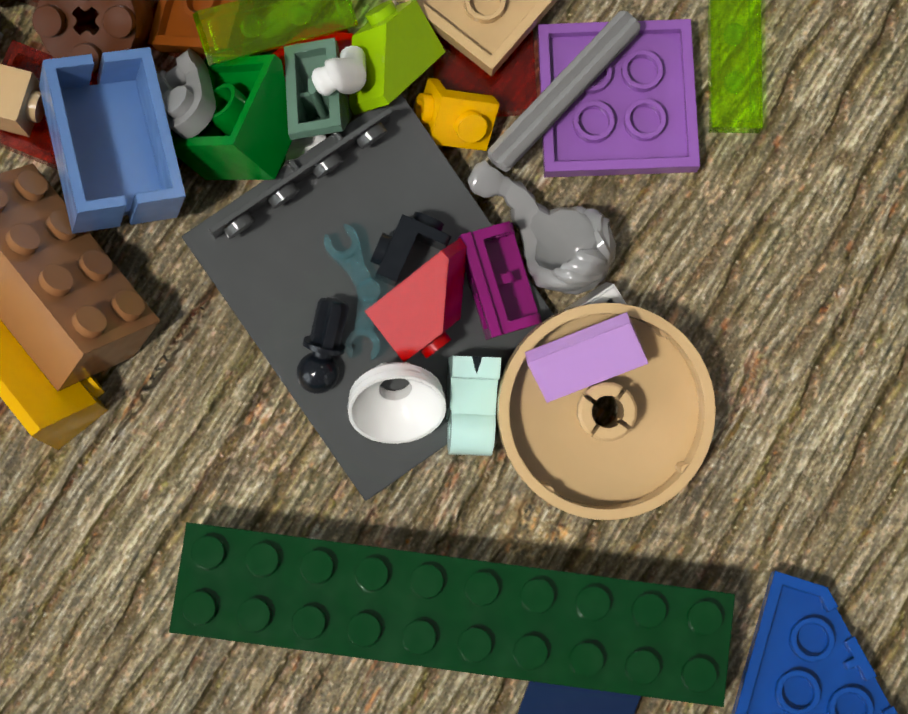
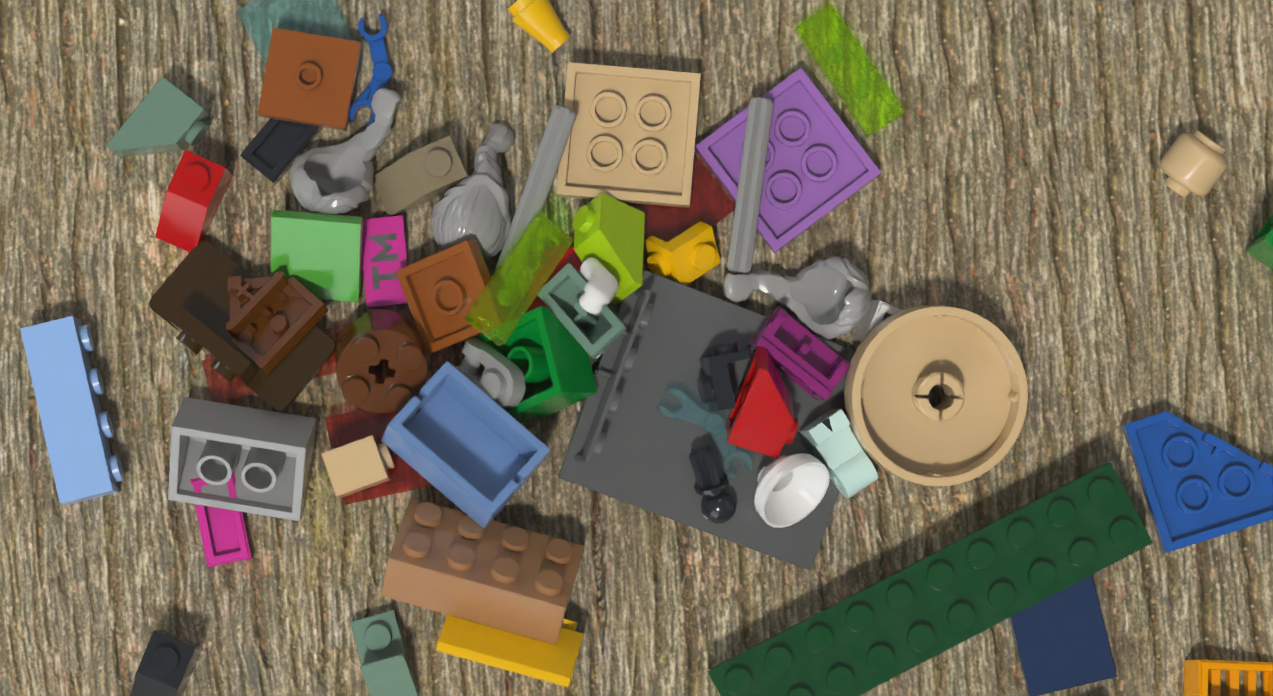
camera: 40 degrees left, 5 degrees up
(586, 357) = (902, 370): lavender tile -> none

